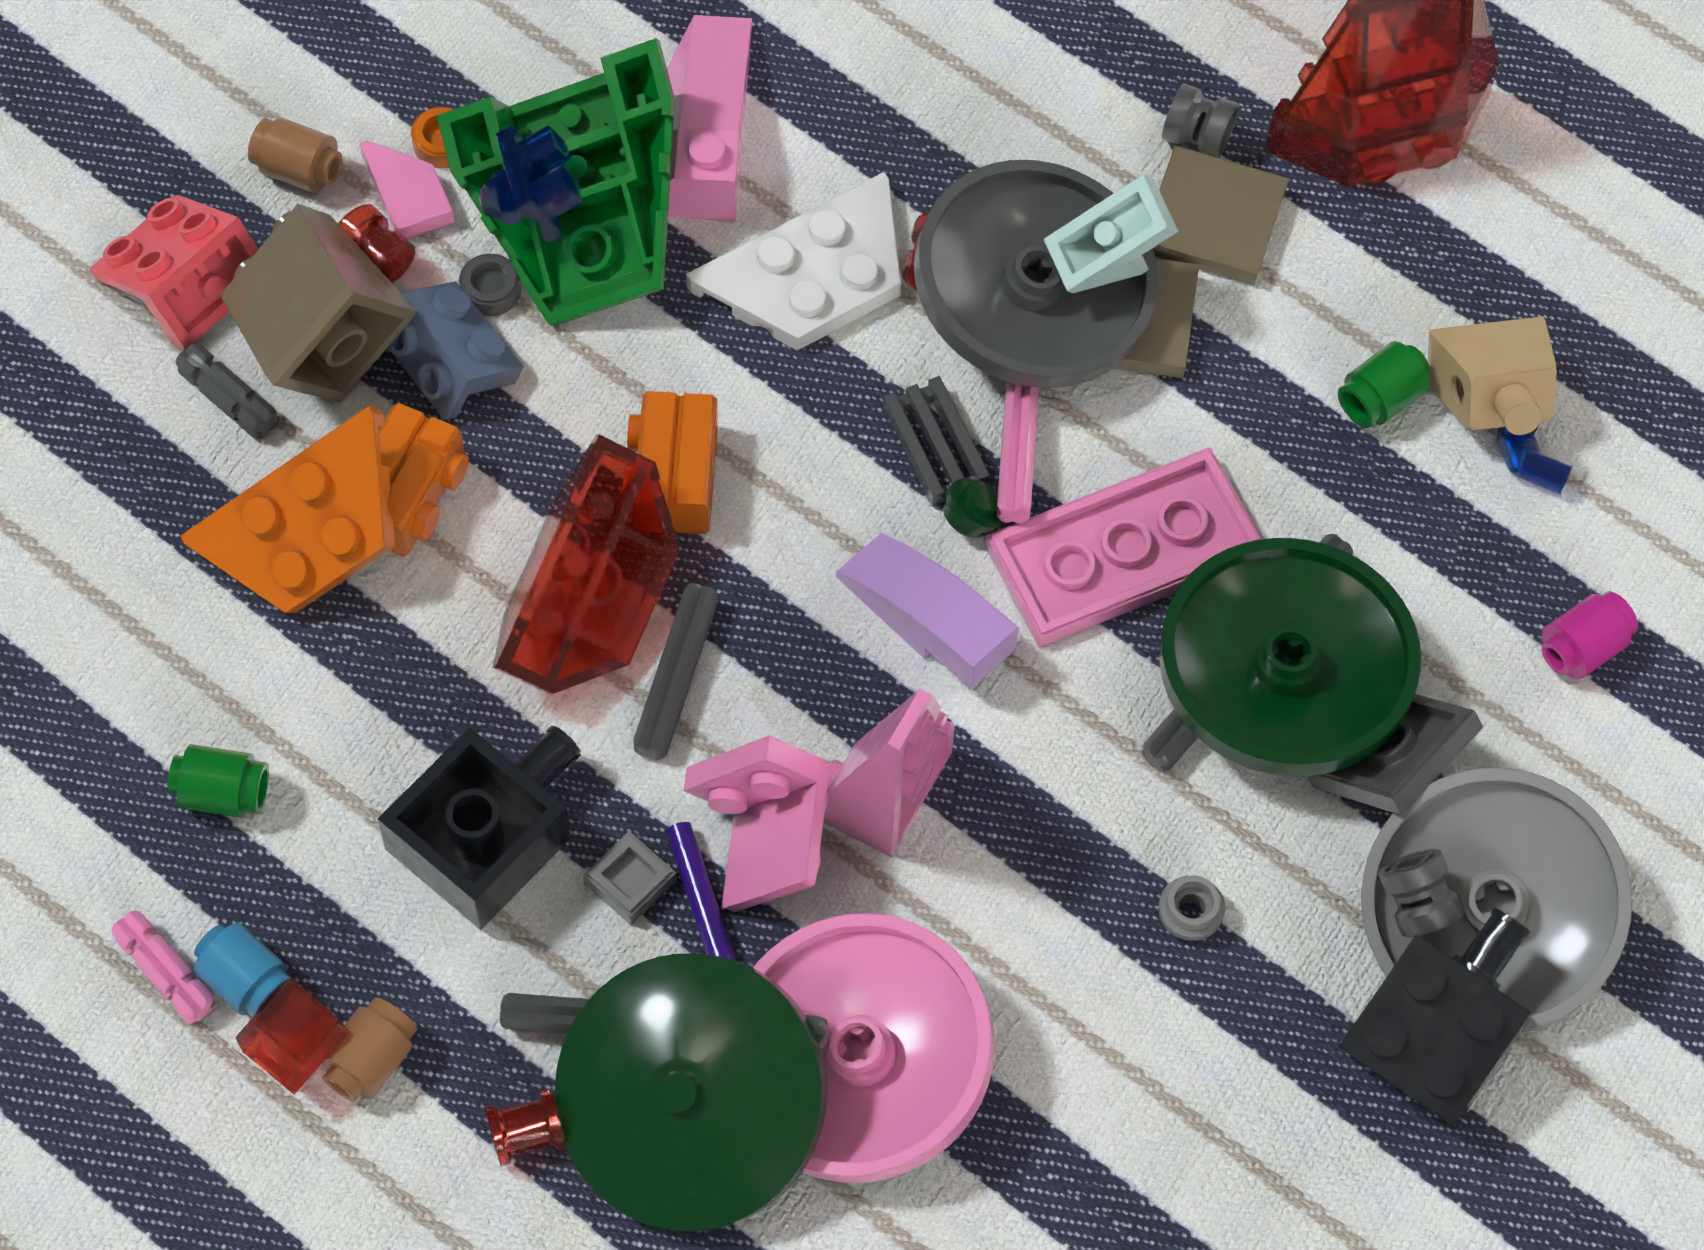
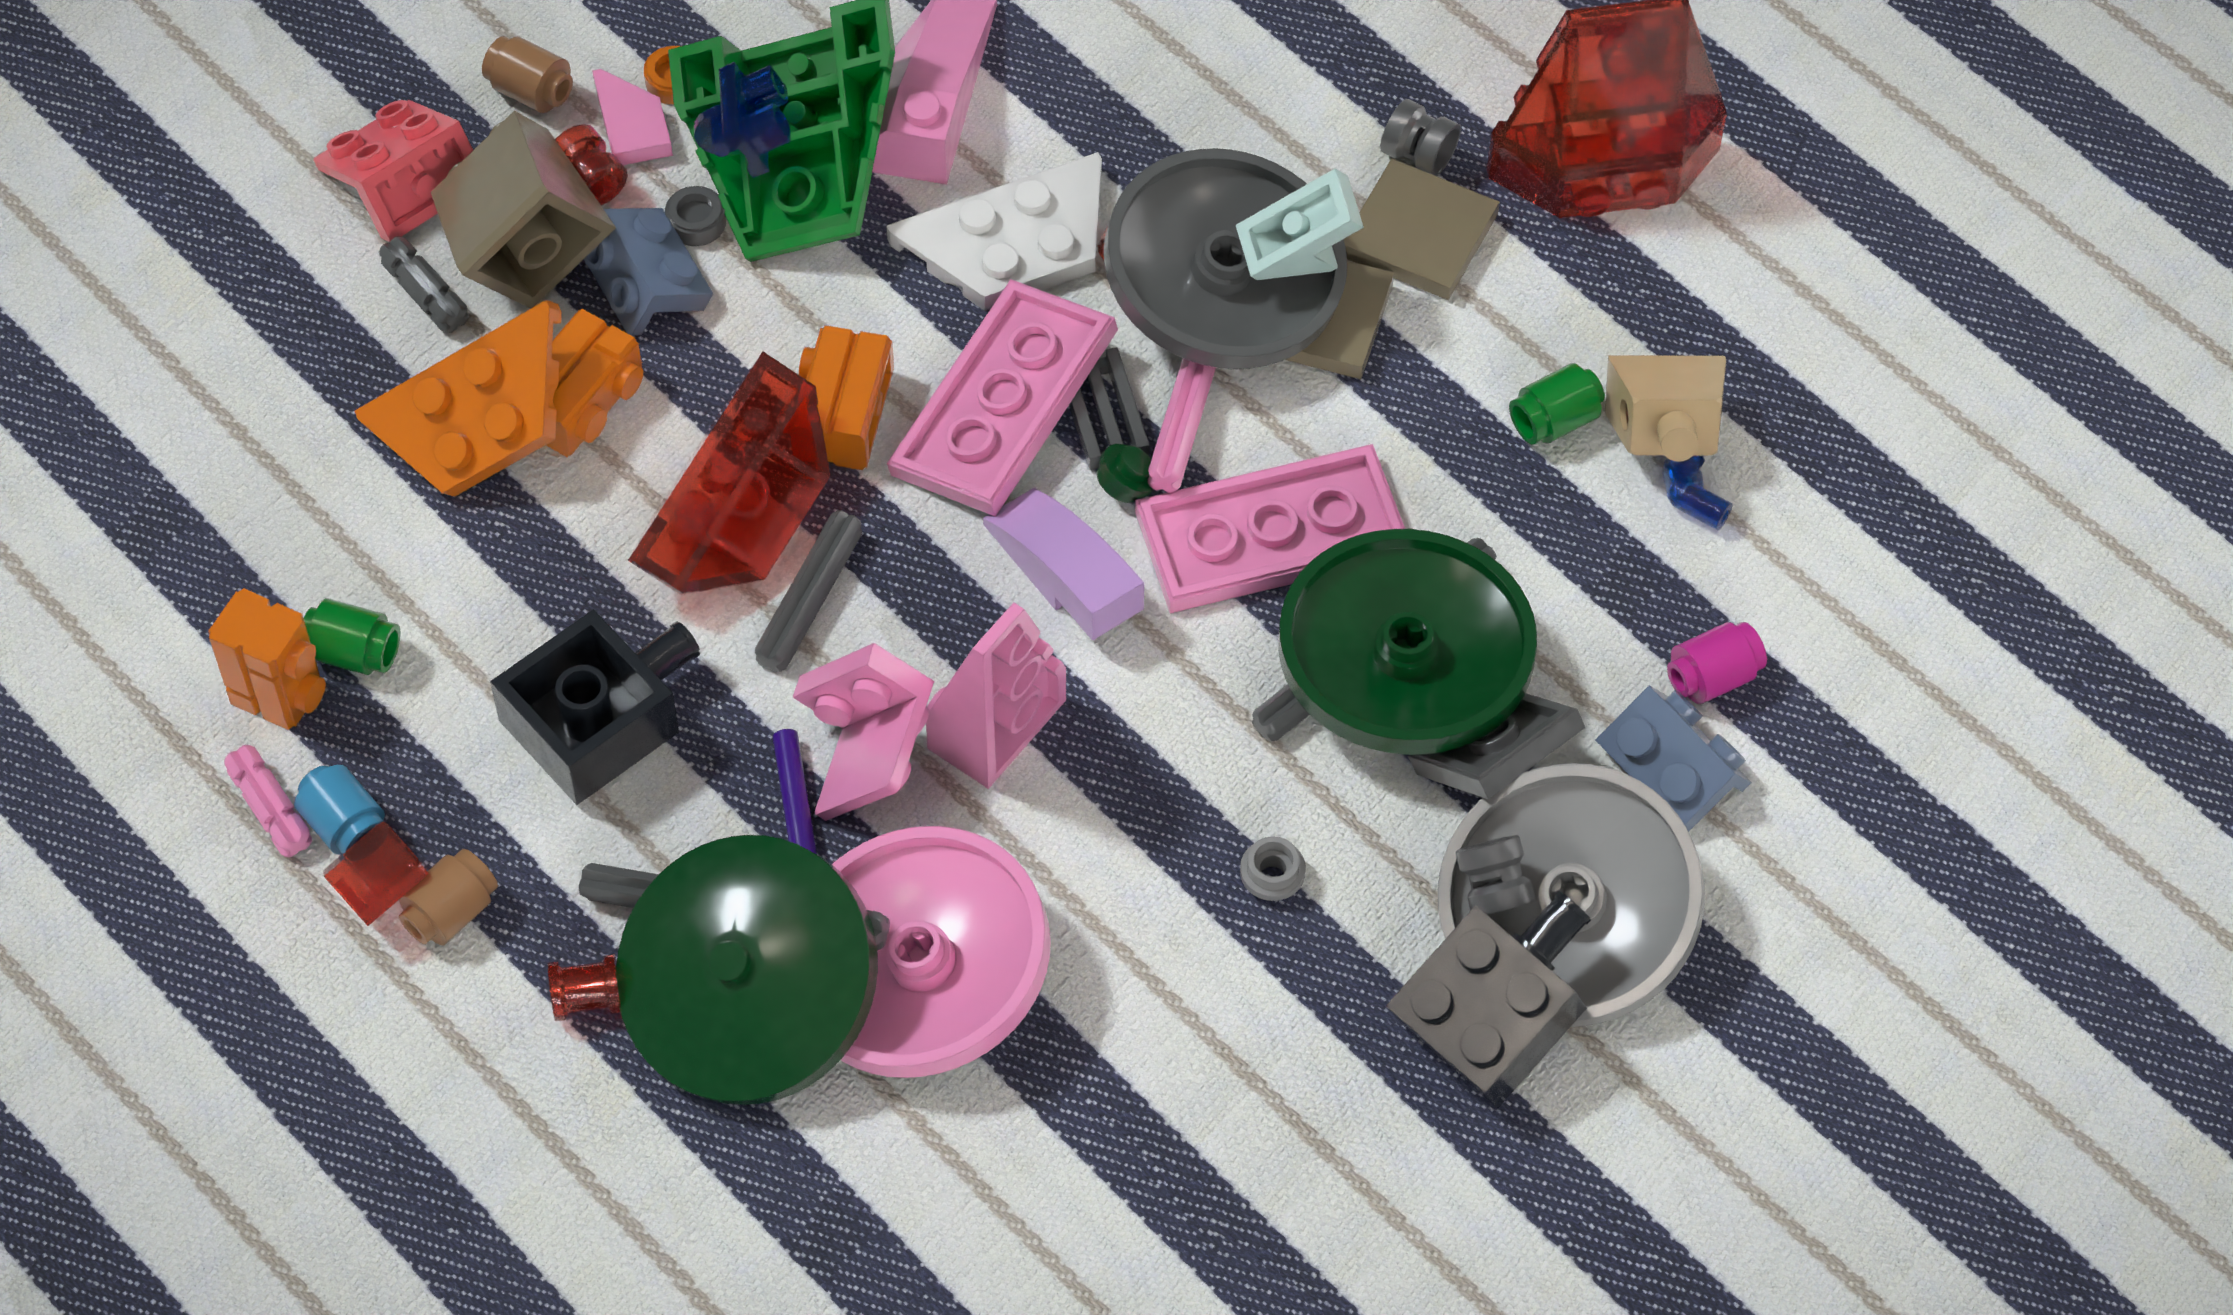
camera: 10 degrees right, 5 degrees down
(140, 820) = (266, 659): none -> orange brick
(630, 878) = (729, 775): light grey tile -> none
(835, 443) = (1002, 397): none -> bright pink tile
(1562, 738) = (1669, 753): none -> sand blue bracket

